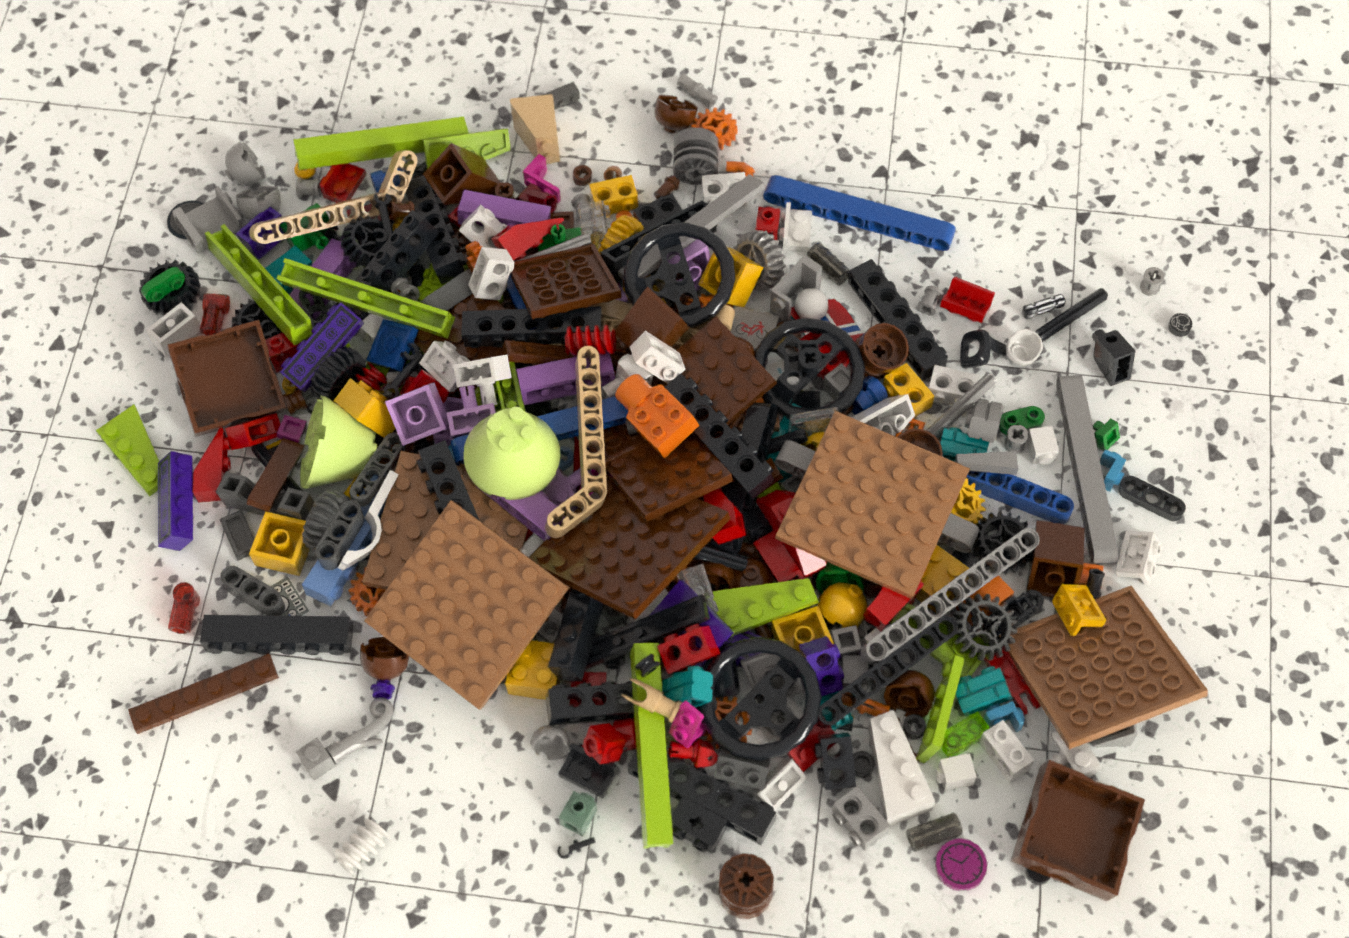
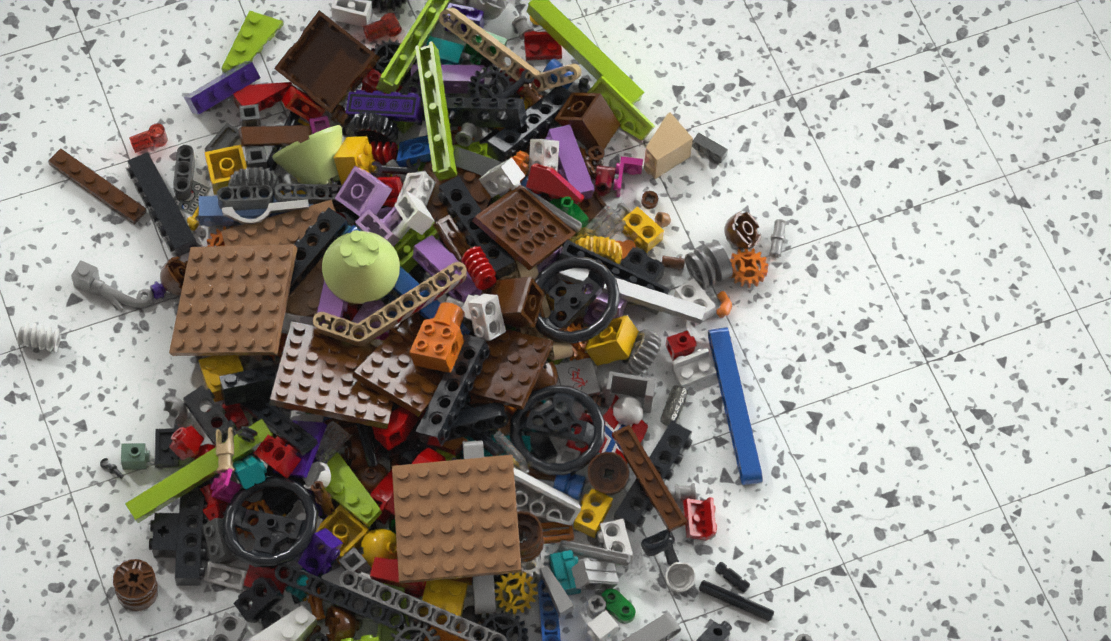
camera: 55 degrees right, 0 degrees up
(316, 612) = (192, 222): none -> yellow hand
(738, 620) = (318, 472): none -> white hair
(763, 627) = (323, 498): none -> reddish brown pin
(907, 317) = (649, 478): none -> reddish brown plate

